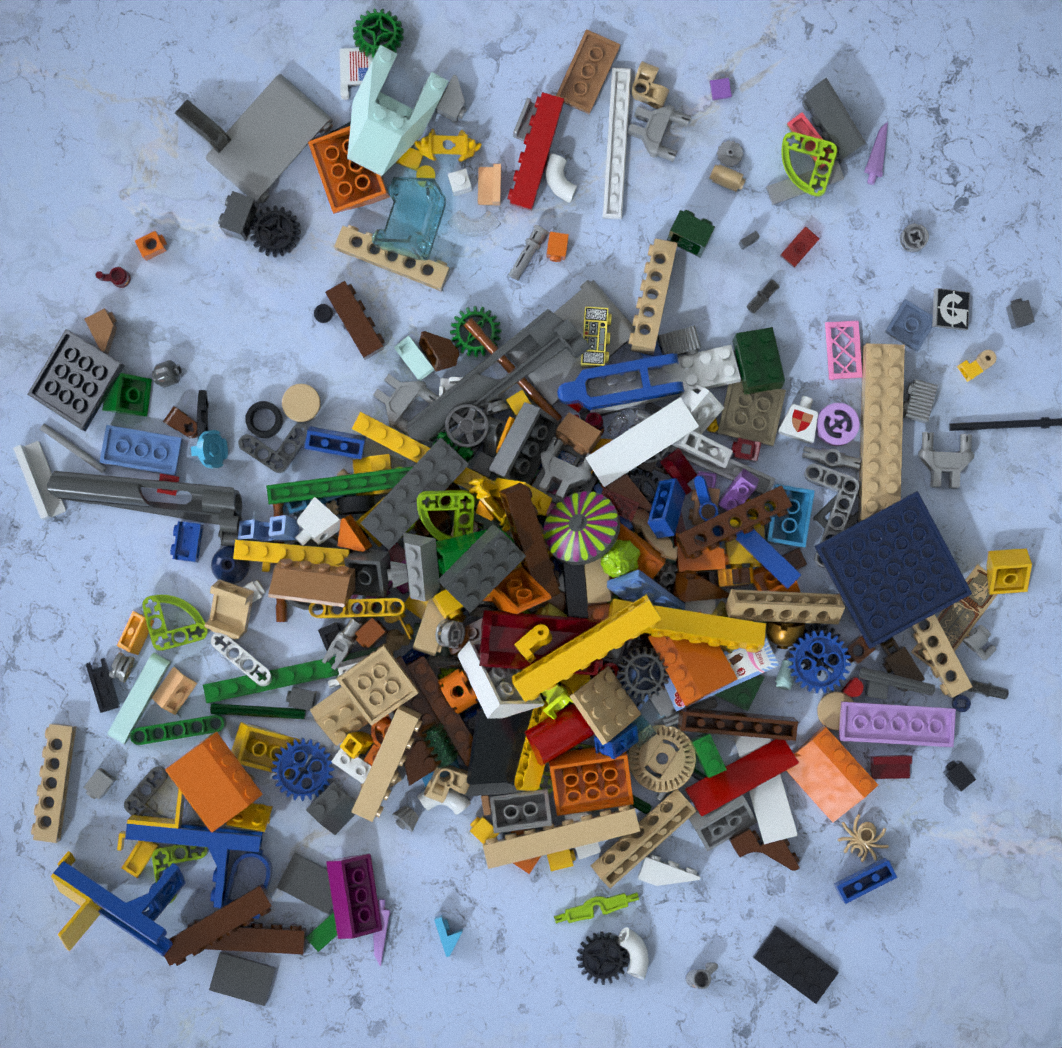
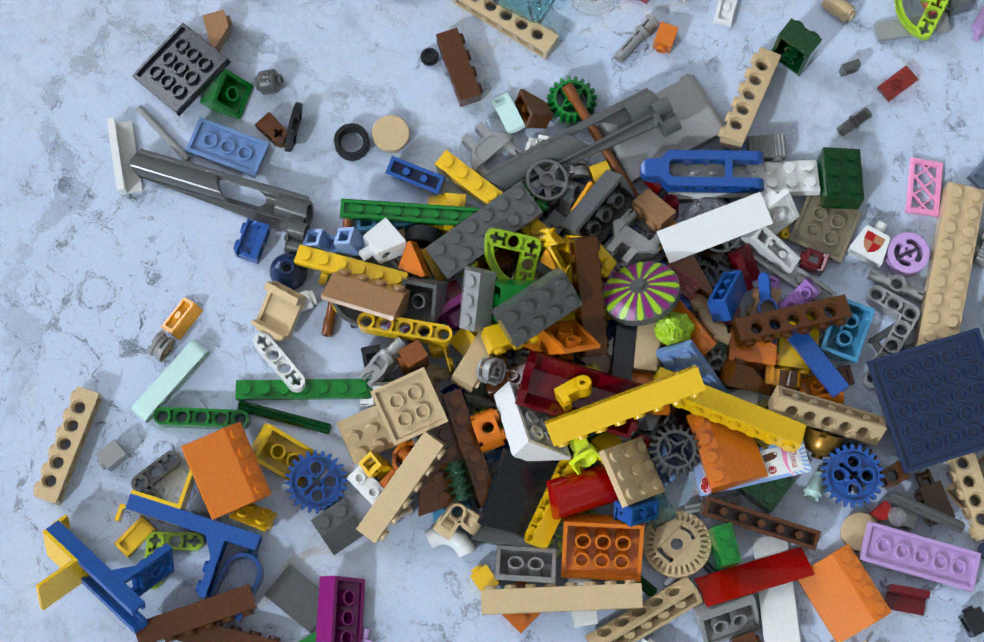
camera: 10 degrees right, 10 degrees down
(103, 687) = (138, 363): black hinge -> none
(162, 631) = (209, 321): lime beam -> none
(165, 477) = (248, 191): red plate -> none
(174, 691) = (206, 381): light nougat panel -> none
(211, 449) = (294, 157): medium azure tile -> none
(280, 454) = (360, 177): dark grey beam -> none
(301, 698) = (329, 412): dark grey brick -> none
(397, 573) = (451, 303): light grey piece -> none
(406, 818) = (408, 551): light grey piece -> none
(486, 804) = (491, 553): medium nougat tile -> none
(561, 859) = (556, 623): yellow brick -> none
(596, 335) = (688, 114): brick -> none
(663, 703) = (687, 488): light grey brick -> none
(868, 692) = (896, 516): none -> clear plate

